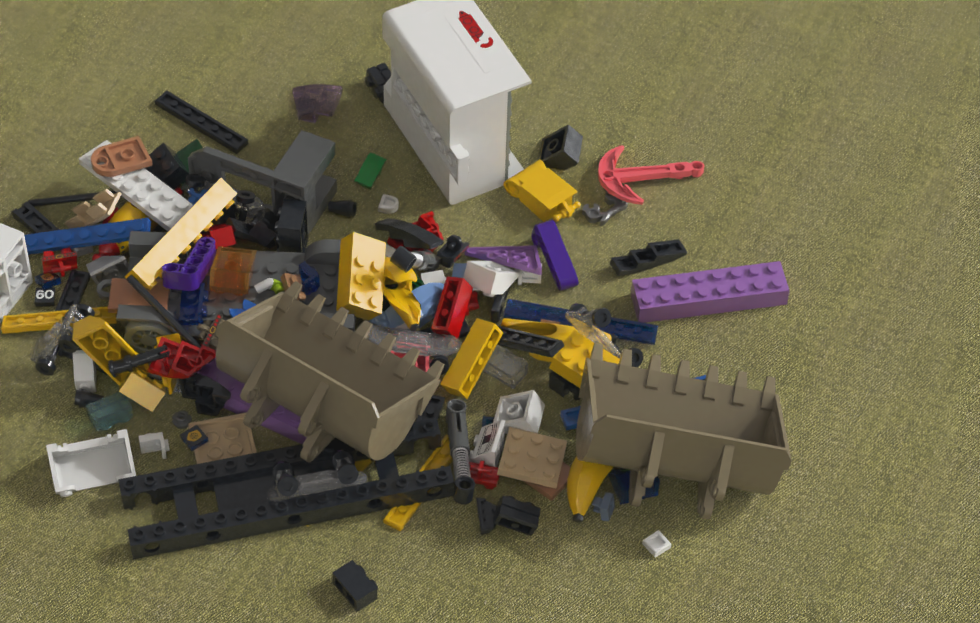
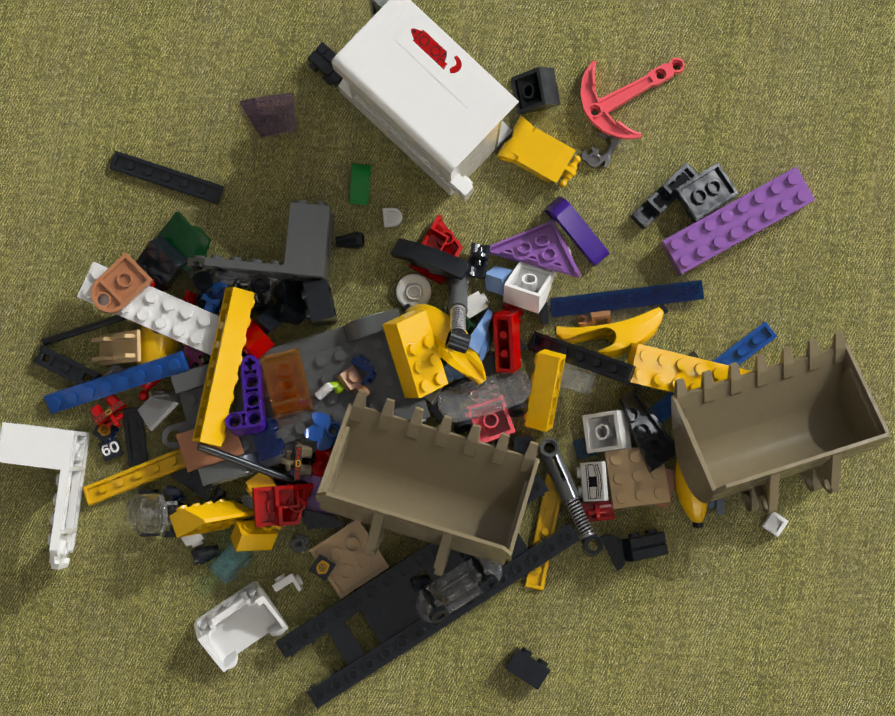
camera: 20 degrees left, 35 degrees up
(129, 362) = (236, 527): black pin -> none
(557, 419) = (648, 432): none -> black wing
(586, 324) = (664, 335): piece -> none
(685, 259) = (705, 192): none -> tile

